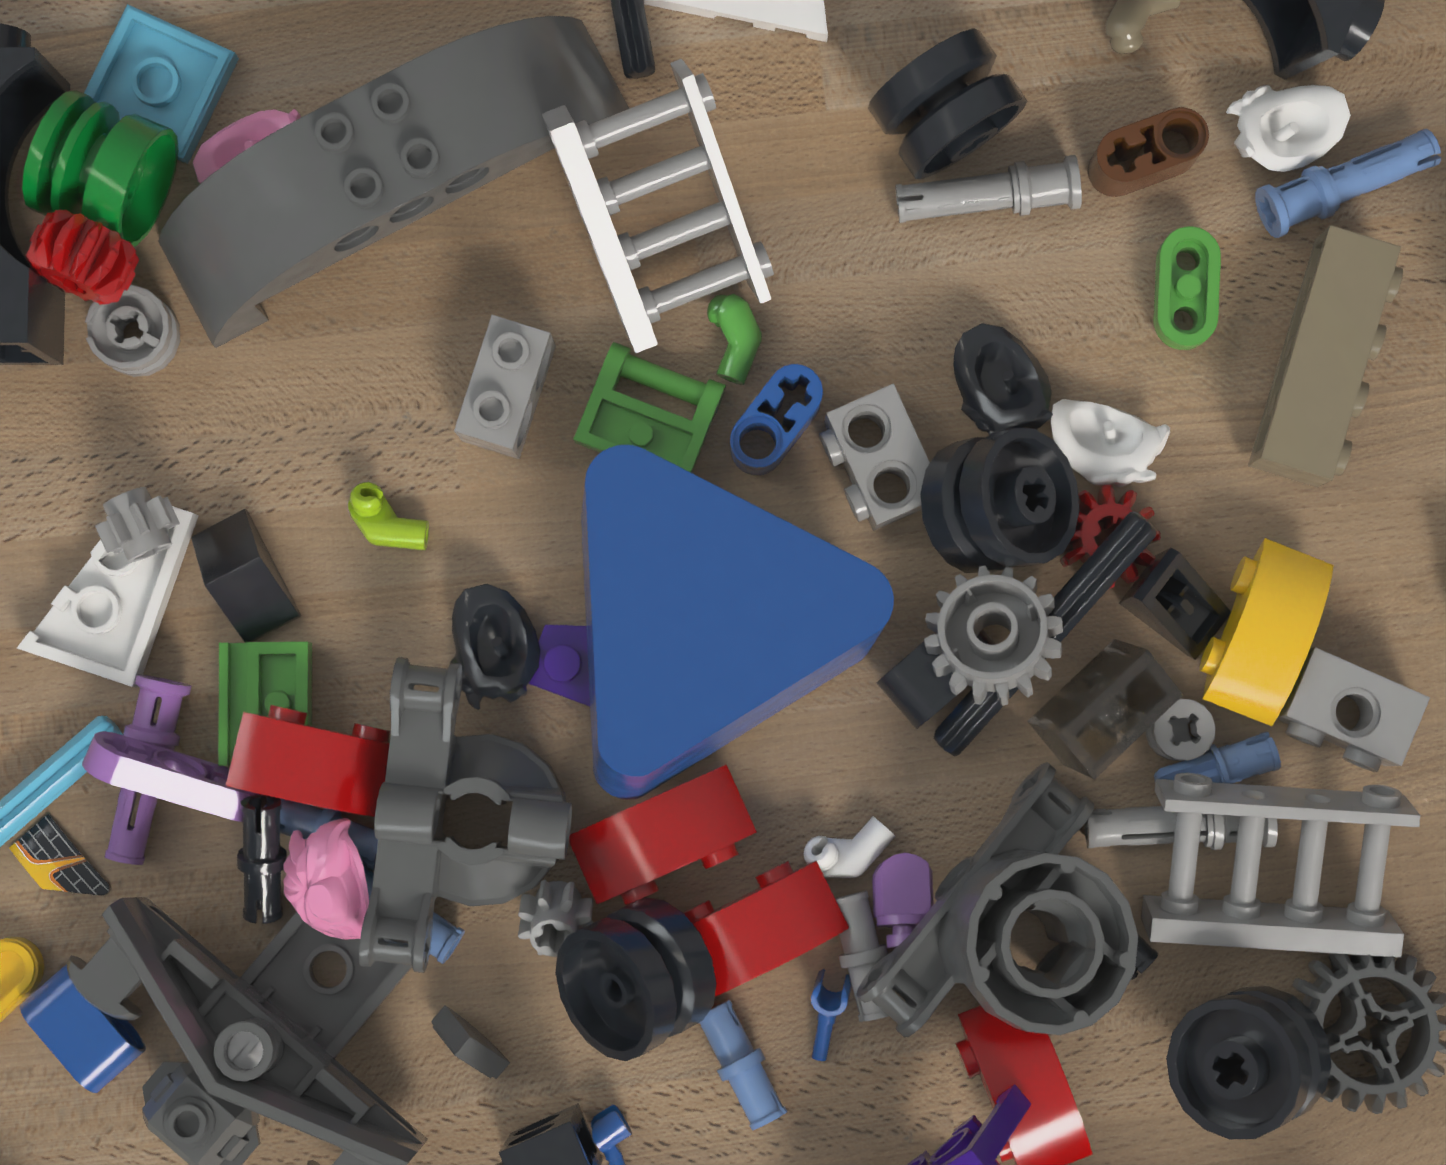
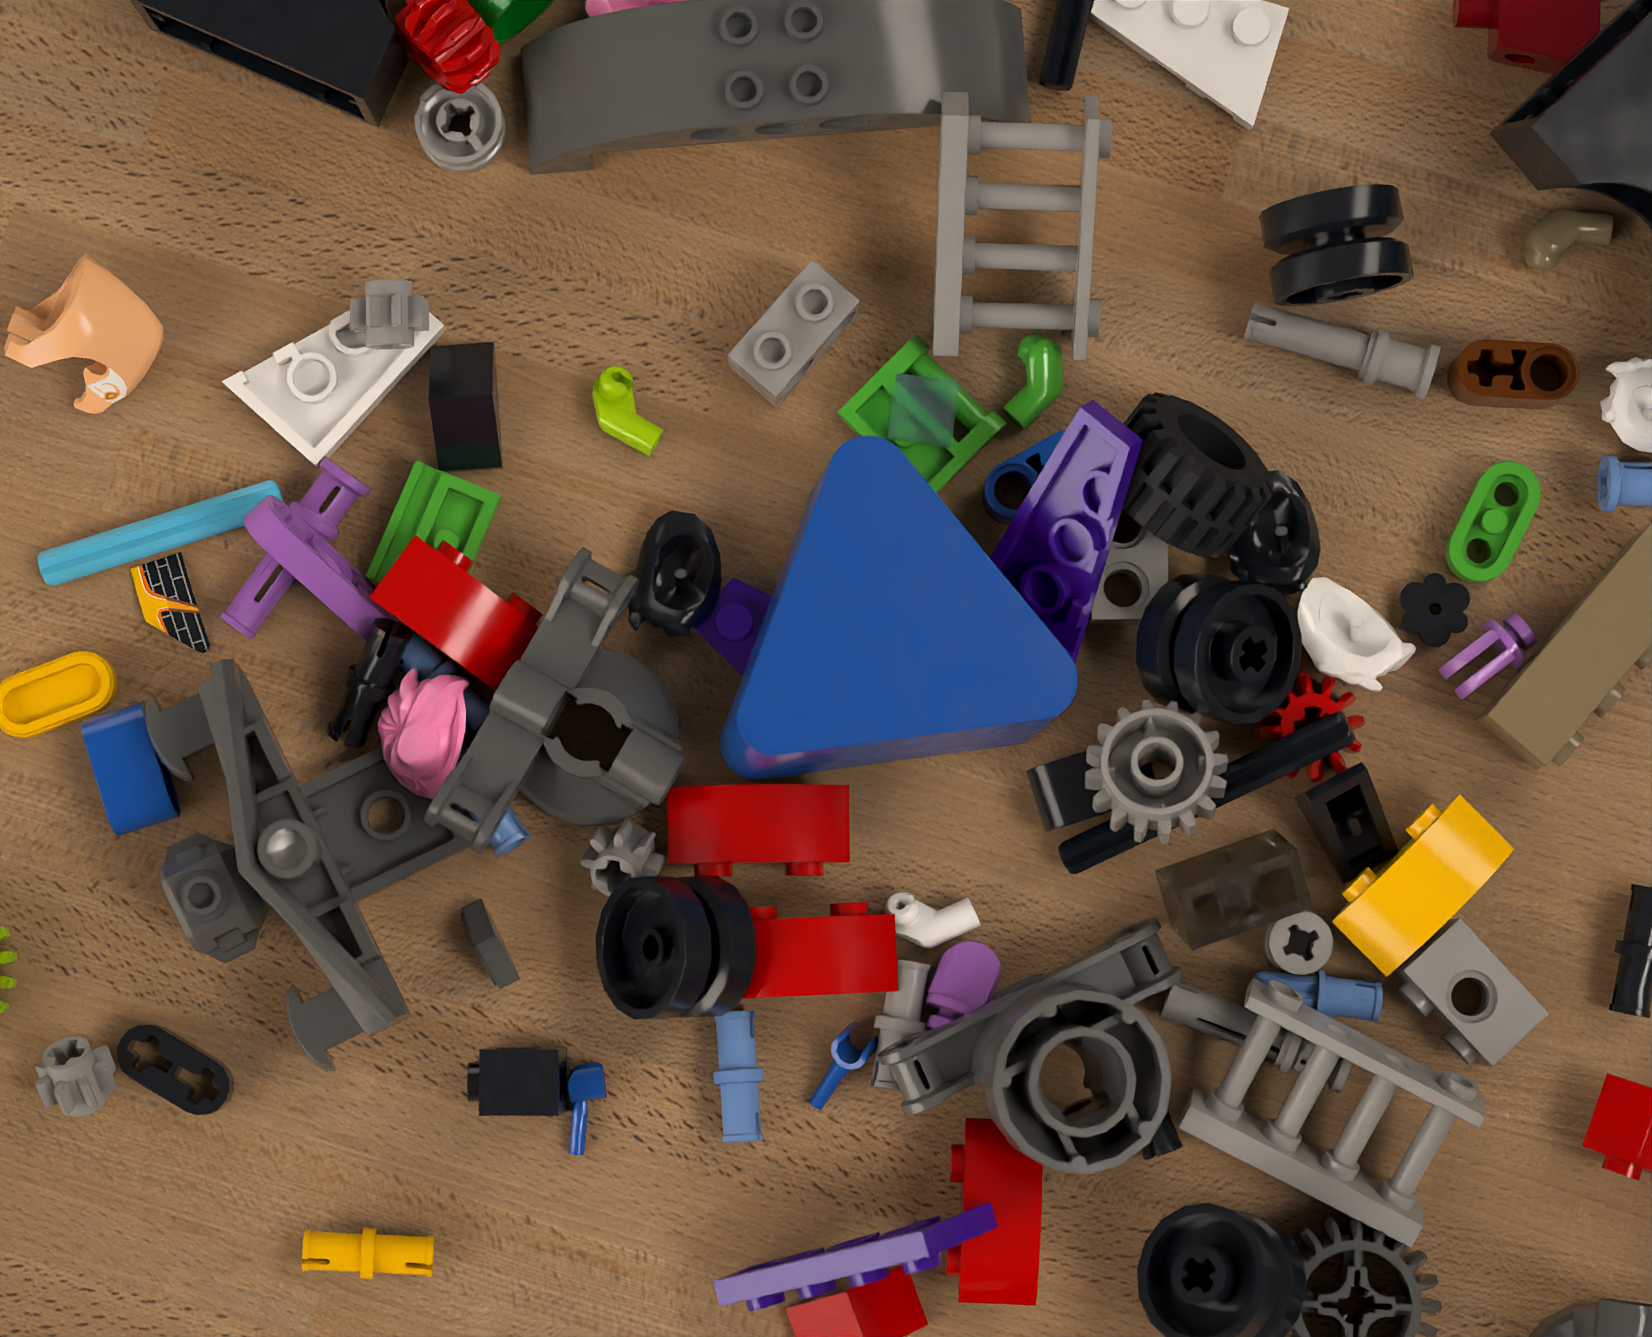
camera: 20 degrees right, 0 degrees up
(648, 405) = (923, 410): none -> clear light blue tile
(820, 446) = (1068, 523): none -> dark purple wing
(904, 362) = (1193, 477): none -> black tyre
(1180, 374) = (1450, 600): none -> black plant
(1245, 387) = (1505, 642): none -> medium lavender arm

